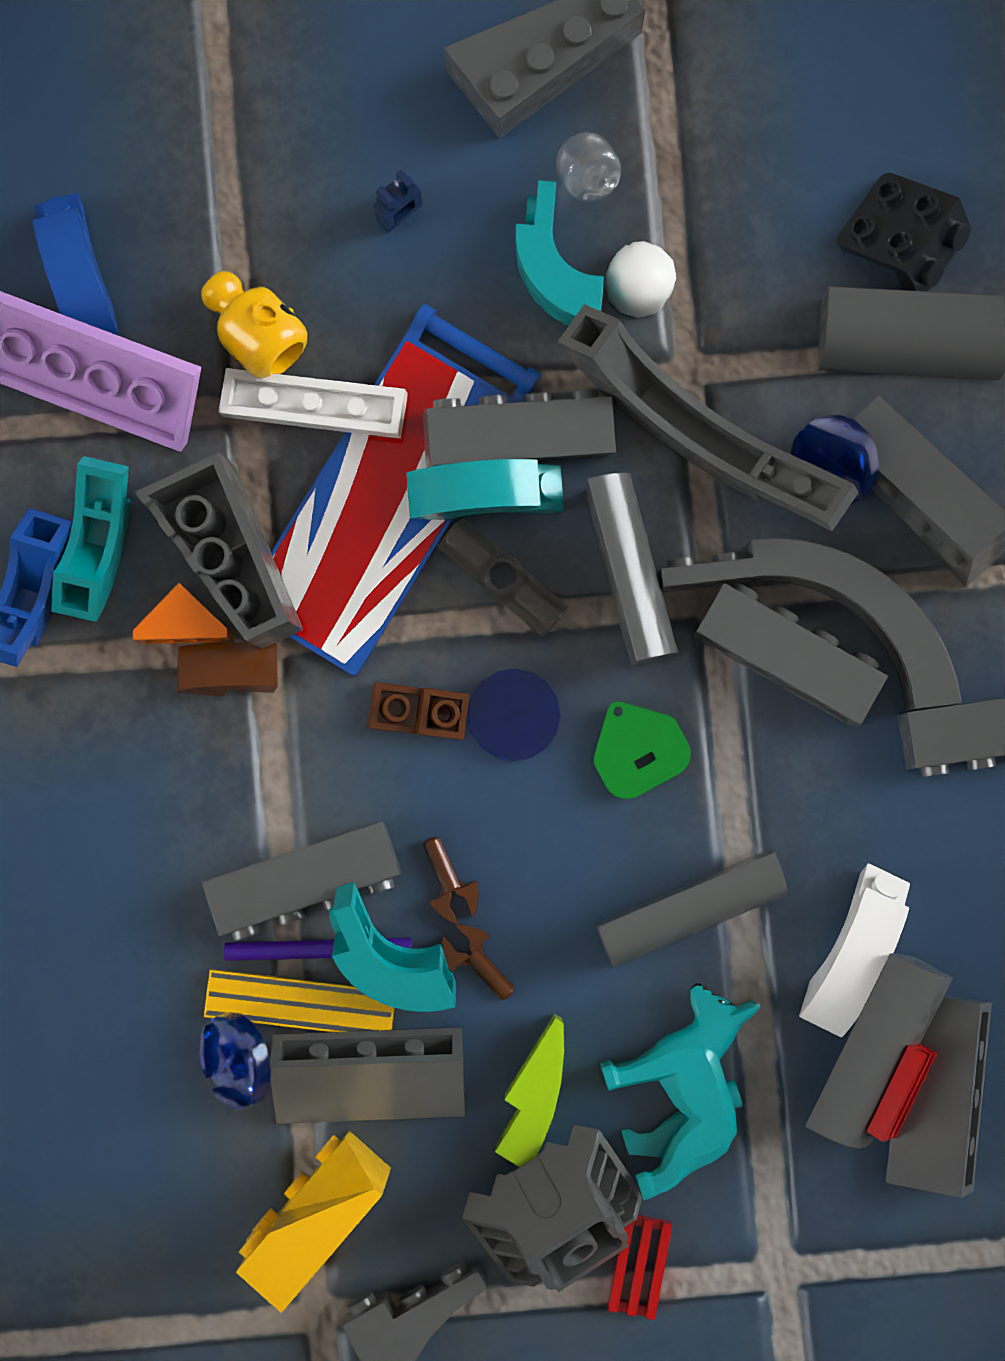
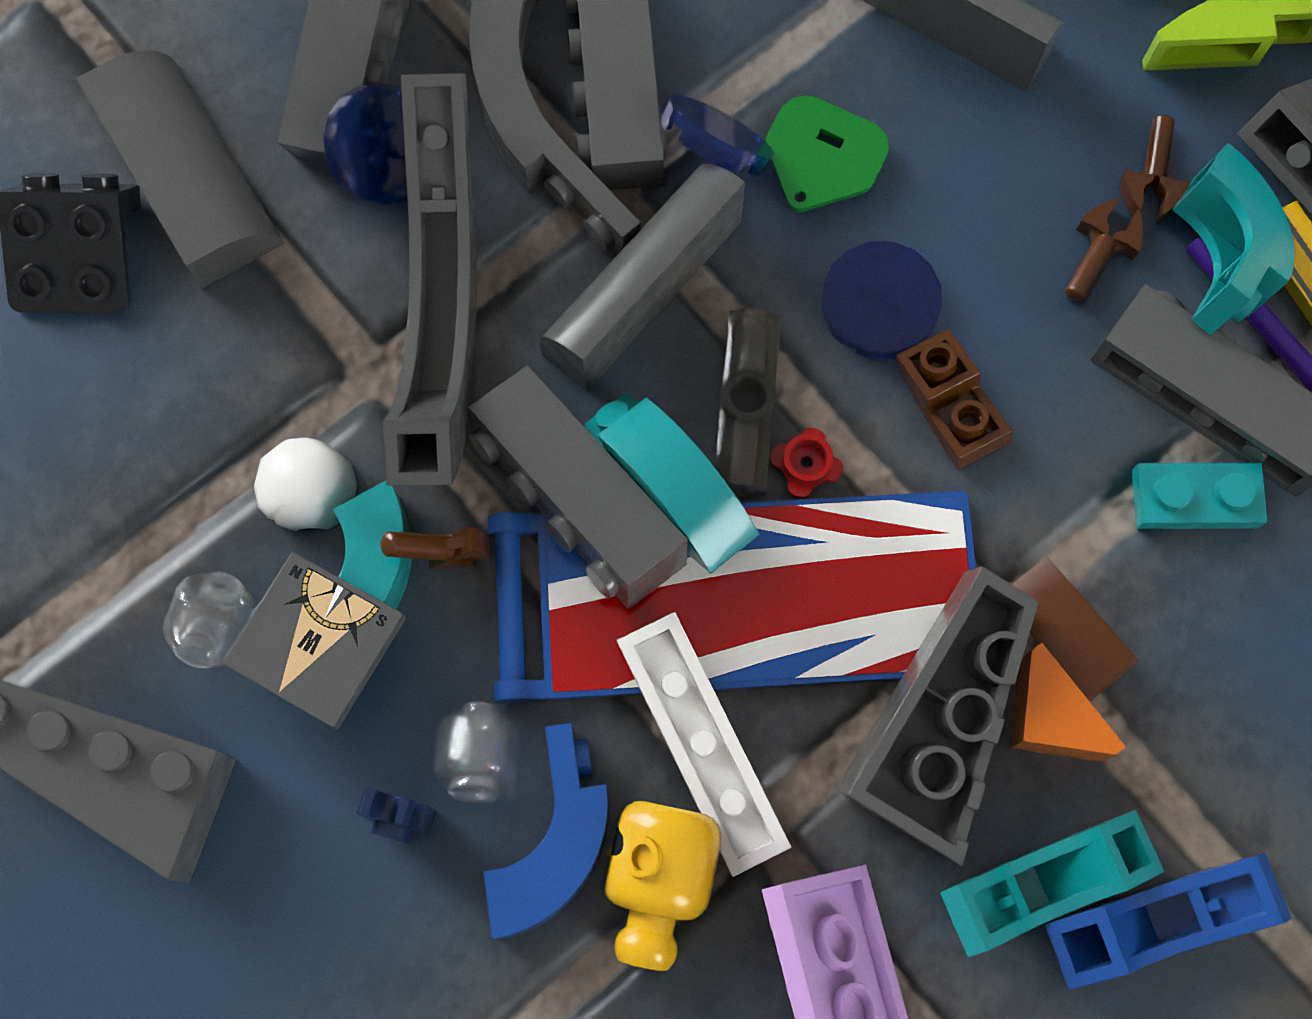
camera: 125 degrees left, 10 degrees down
(250, 817) = (1199, 495): none -> teal plate
(299, 256) = (563, 862): none -> blue arch
(400, 271) = (476, 753): none -> clear head
(432, 580) = (810, 445): none -> red plate
(526, 212) = (314, 640): none -> dark grey tile
(538, 330) = (441, 551): none -> reddish brown bar
(692, 679) = (716, 135): none -> clear blue tile

